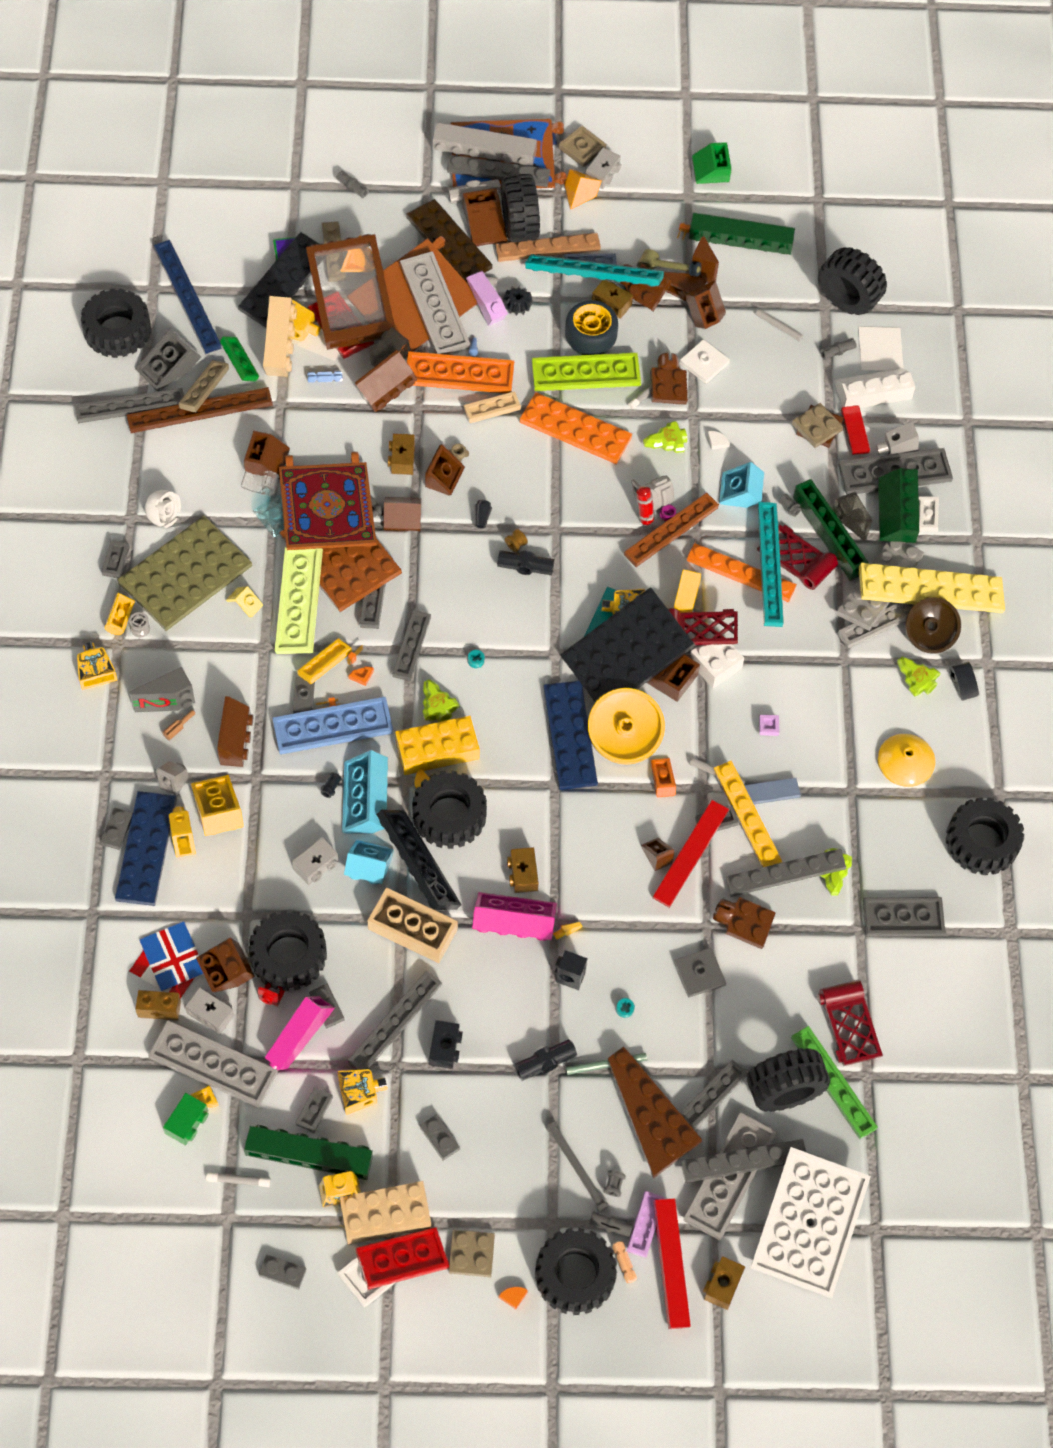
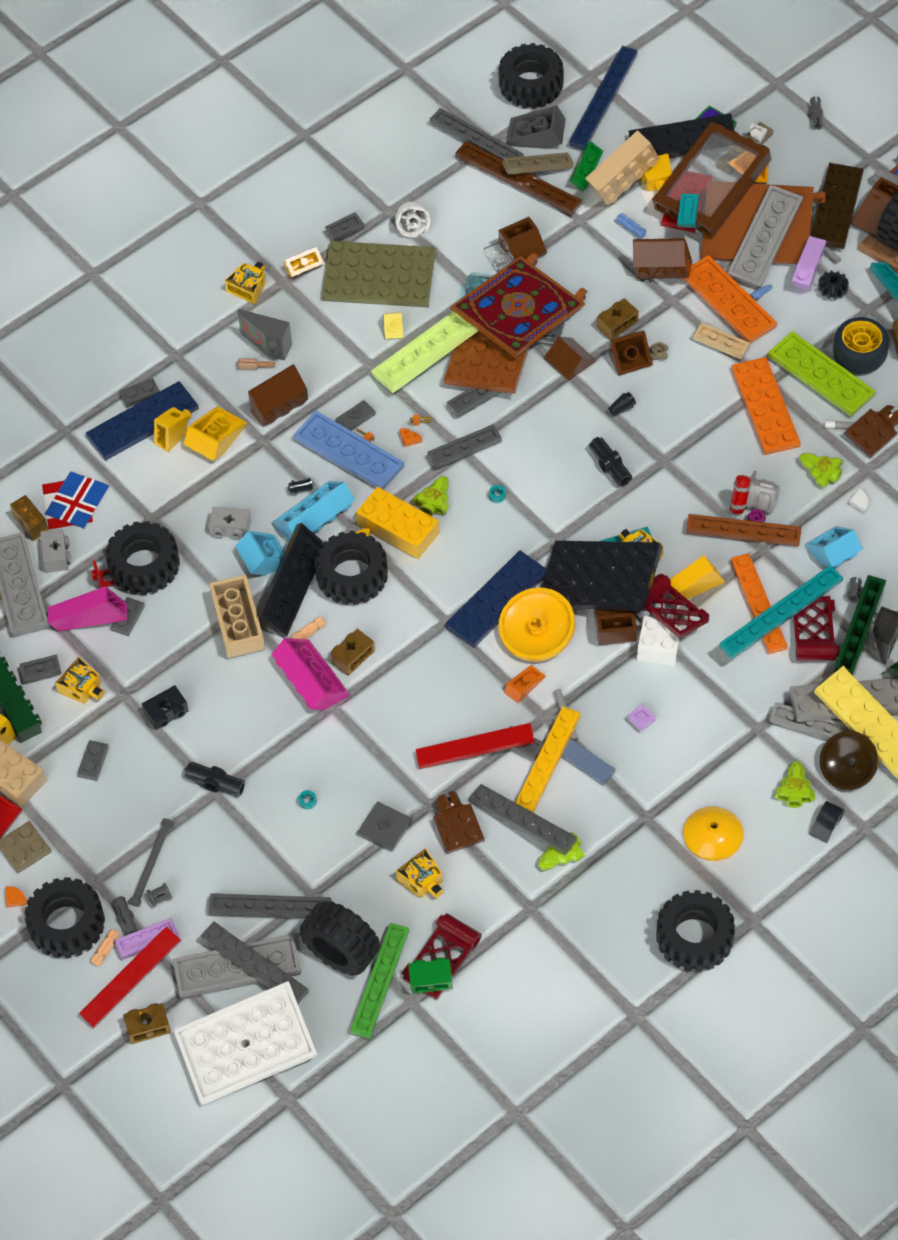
camera: 55 degrees right, 5 degrees down
(139, 624) = (307, 280): light grey wheel -> none
(172, 777) = (208, 389): light grey slope -> none
(225, 966) = (94, 531): reddish brown slope -> none
(324, 661) = (394, 405): yellow plate -> none
(333, 232) = (757, 133): none -> white tile
(364, 328) = (688, 210): none -> teal tile
(390, 342) = (696, 238): clear smoke slope -> none
(395, 1021) = (154, 665): dark grey plate -> none
(470, 889) = (309, 629): none -> light nougat axle
(516, 540) = (622, 441): pearl gold wheel -> none
(567, 929) = (333, 715): yellow bar -> none
(571, 969) = (298, 738): black brick -> none
(599, 1065) = (251, 821): sand green bar -> none
(657, 1123) = (231, 884): reddish brown wing -> none
(658, 853) = (453, 726): reddish brown slope -> none
(769, 980) = (421, 875): none -> torso
(866, 1043) = (430, 975): none -> green brick
(904, 917) = (571, 929): dark grey tile -> none

